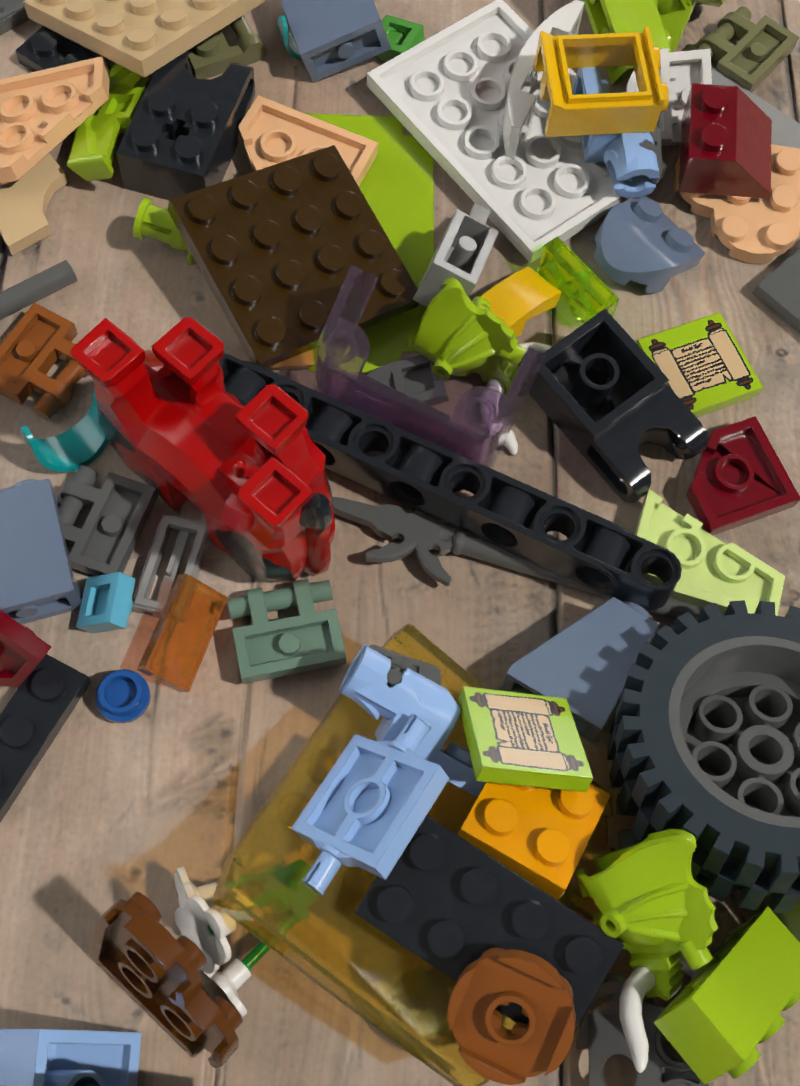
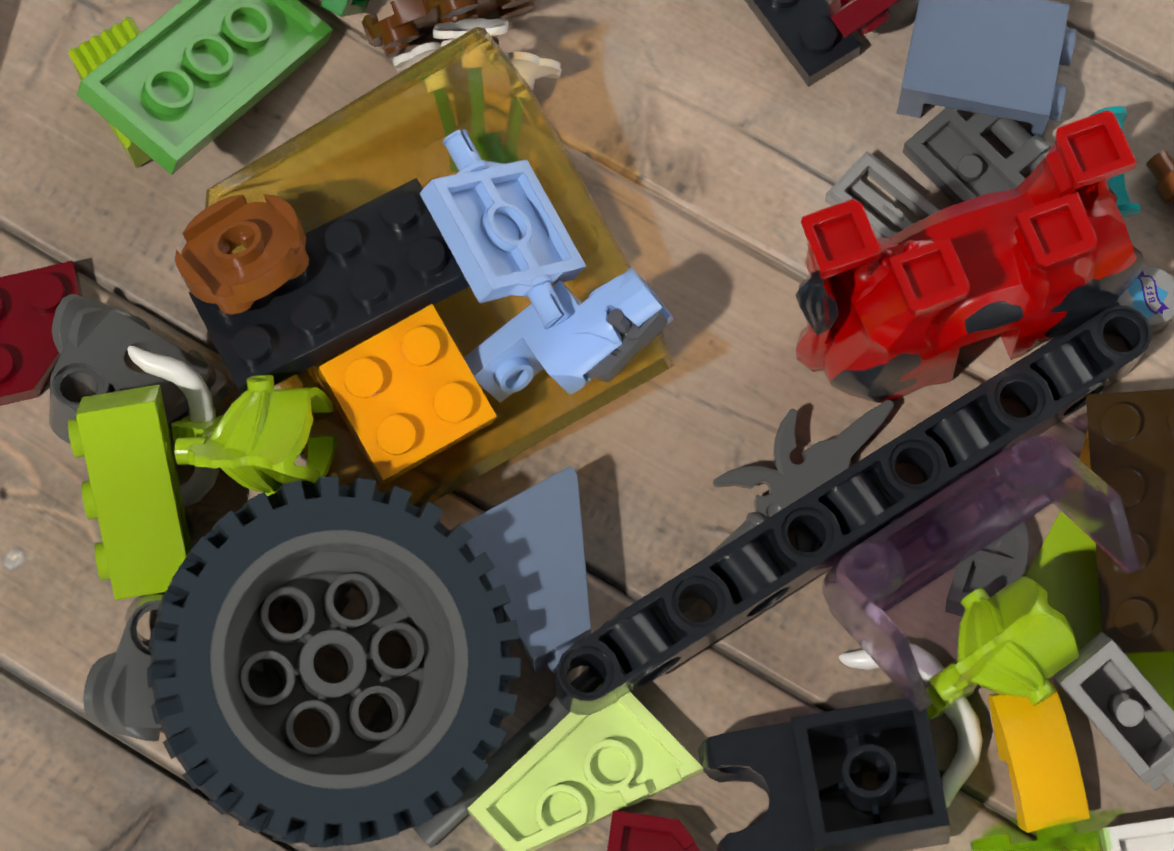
camera: 130 degrees right, 5 degrees up
(106, 603) = (879, 125): medium azure plate -> none
(122, 696) = (771, 103): blue plate -> none
(182, 633) = (798, 173): clear orange tile -> none
(290, 643) = (734, 286): sand green plate -> none
(523, 740) = (484, 414): tile -> none

